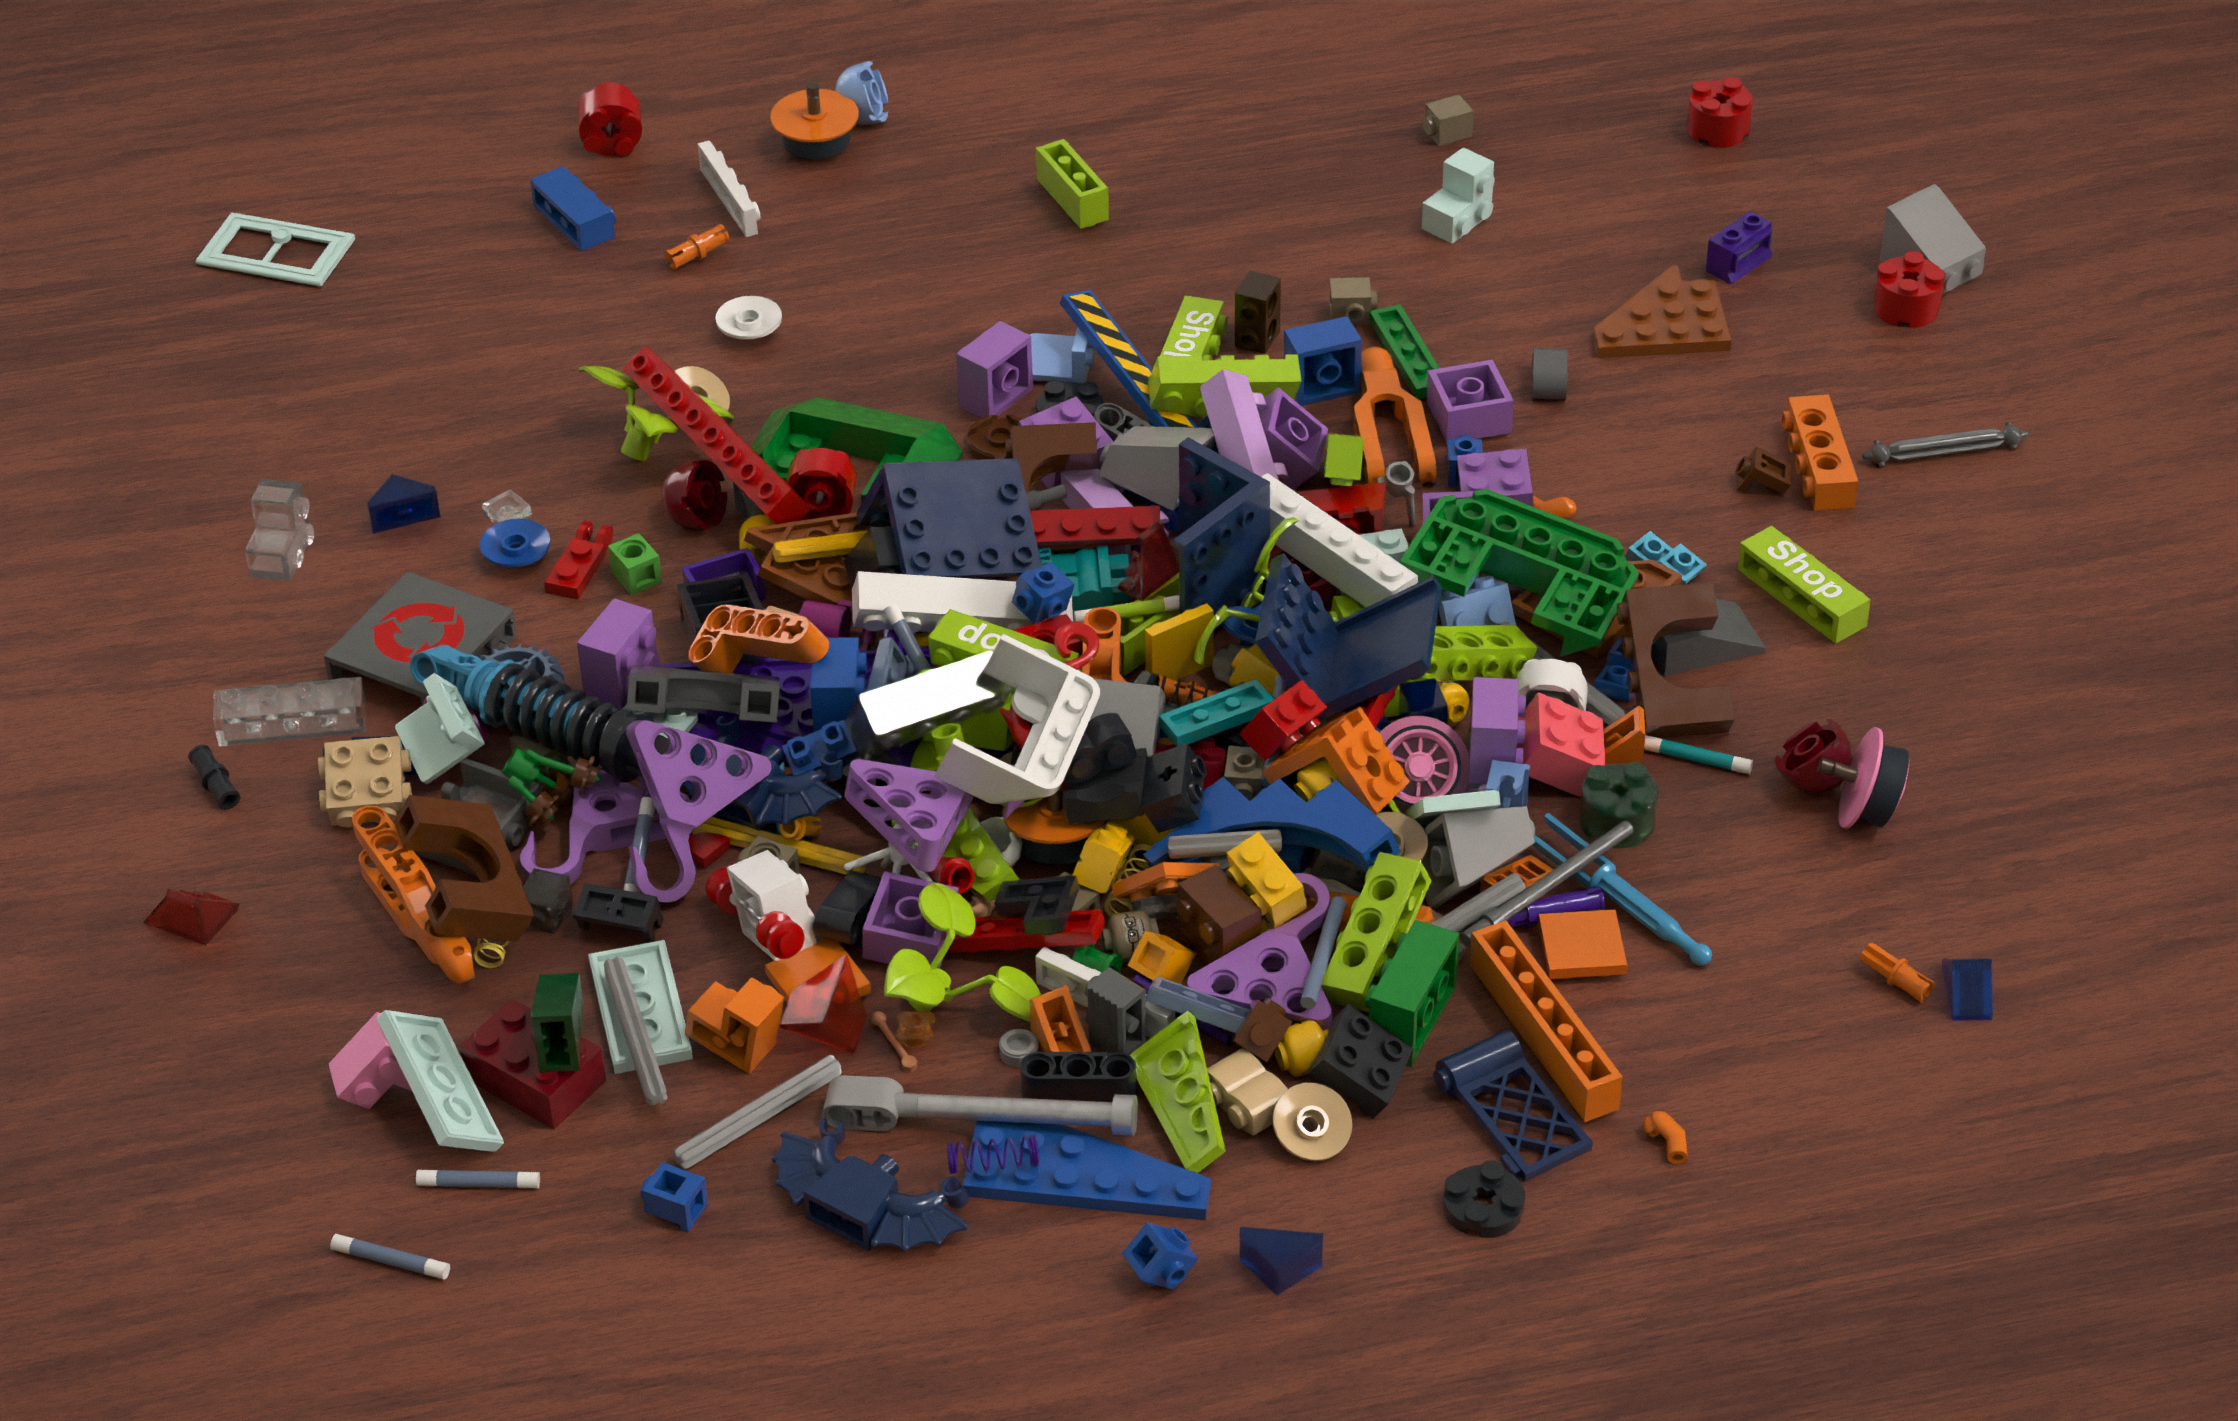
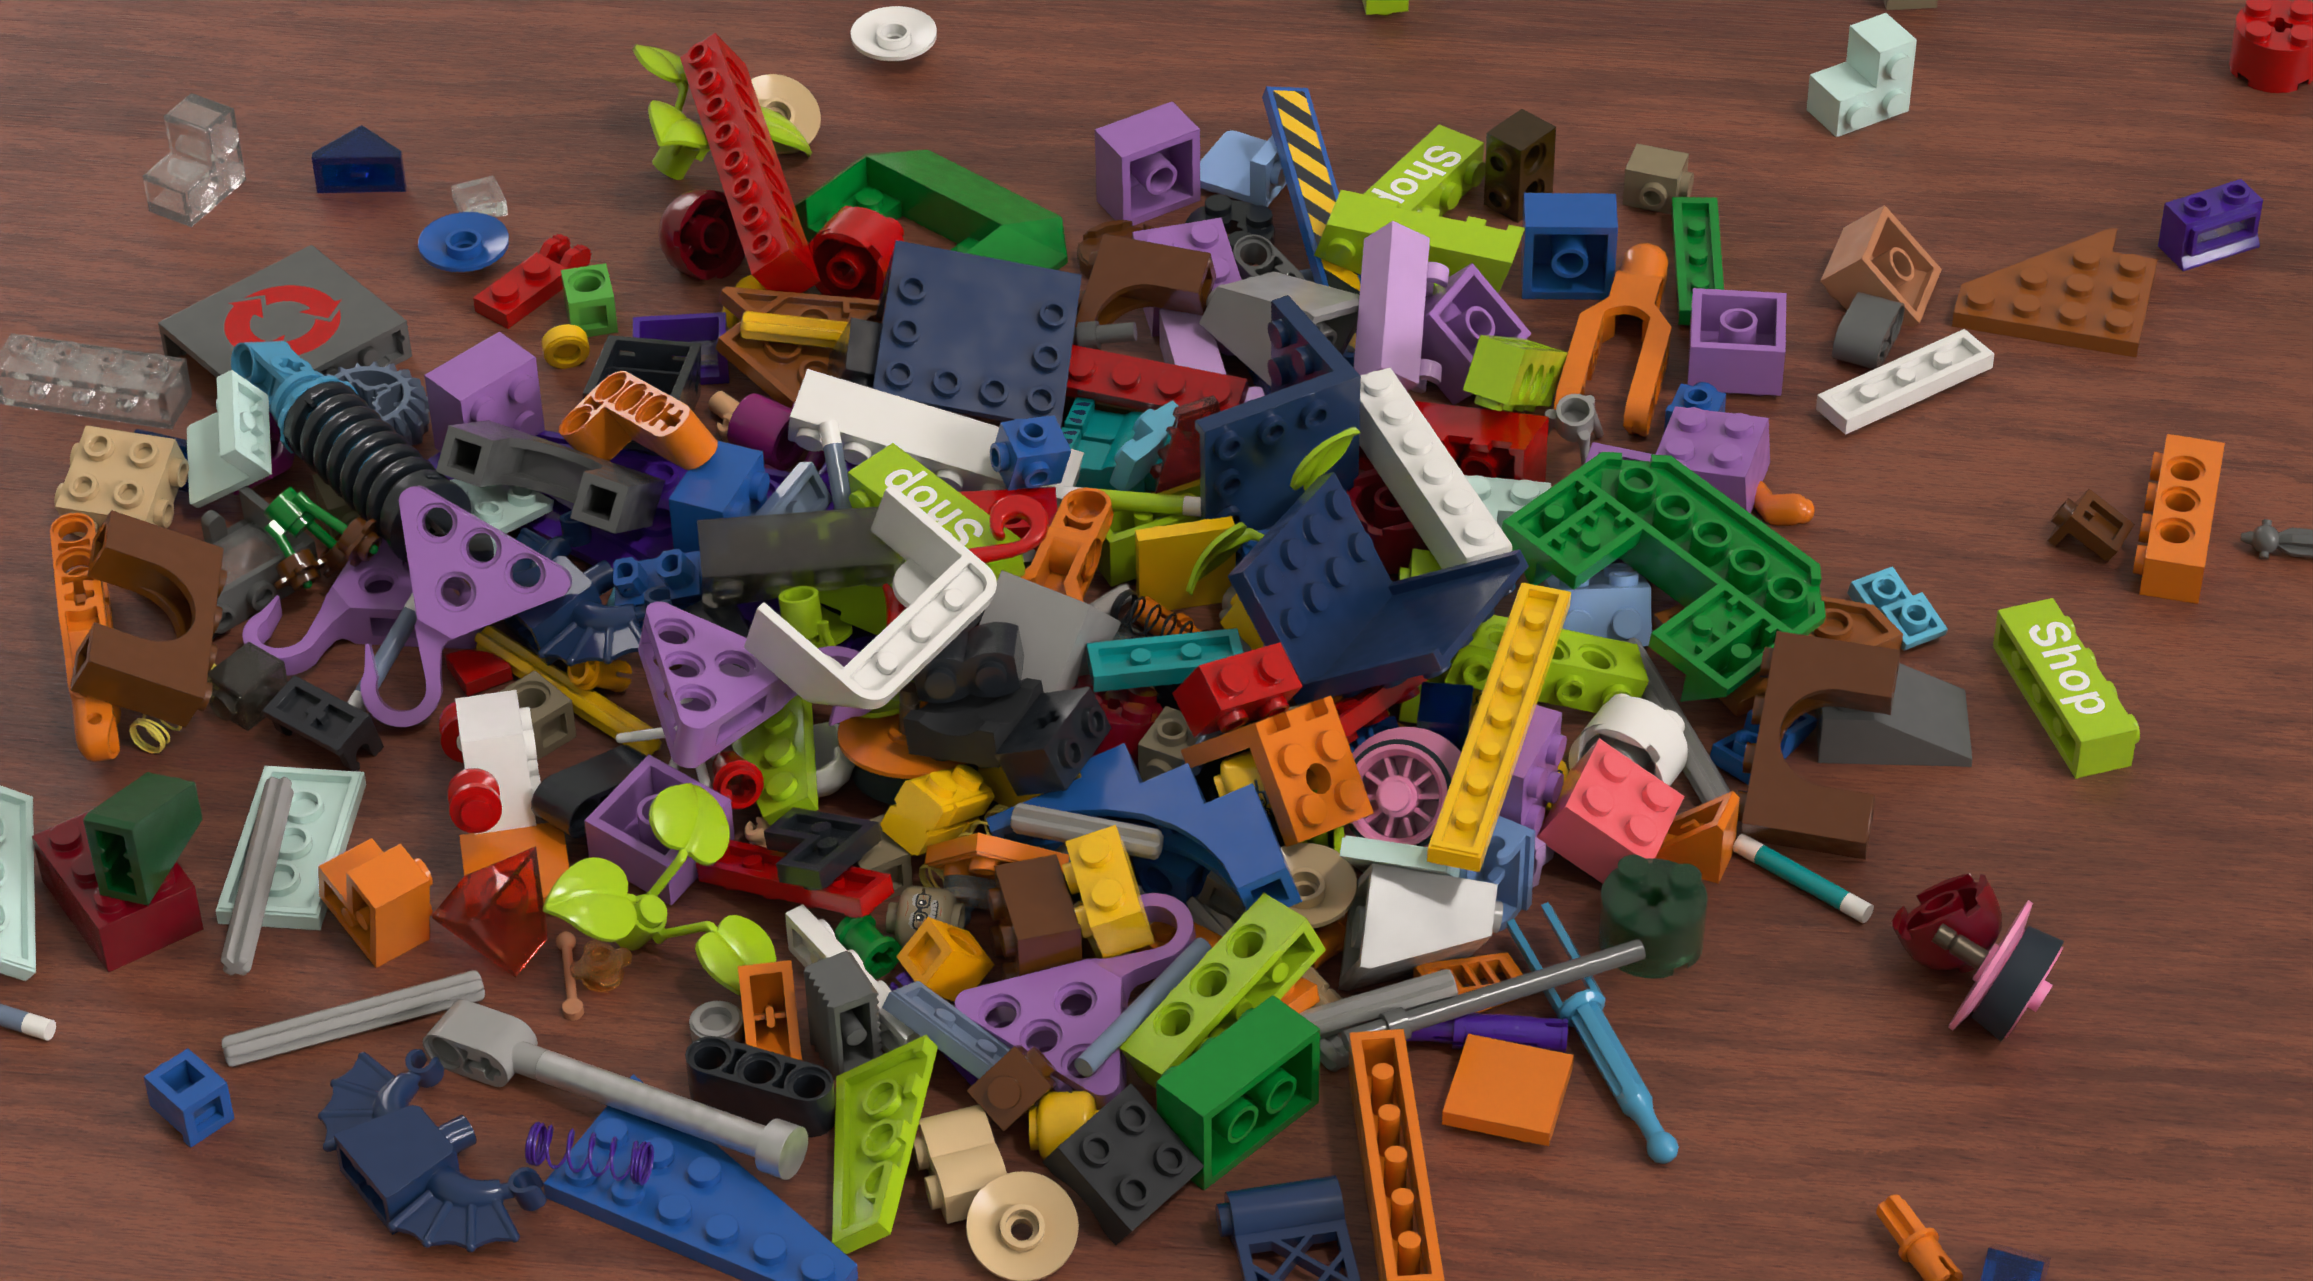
camera: 20 degrees right, 0 degrees up
(638, 595) = (565, 346): none -> yellow tile
(1113, 565) = (1140, 453): none -> medium azure slope
(1486, 699) = (1499, 728): none -> yellow tile
(1534, 322) = (1883, 261): none -> nougat slope
(1591, 403) = (1904, 381): none -> white plate

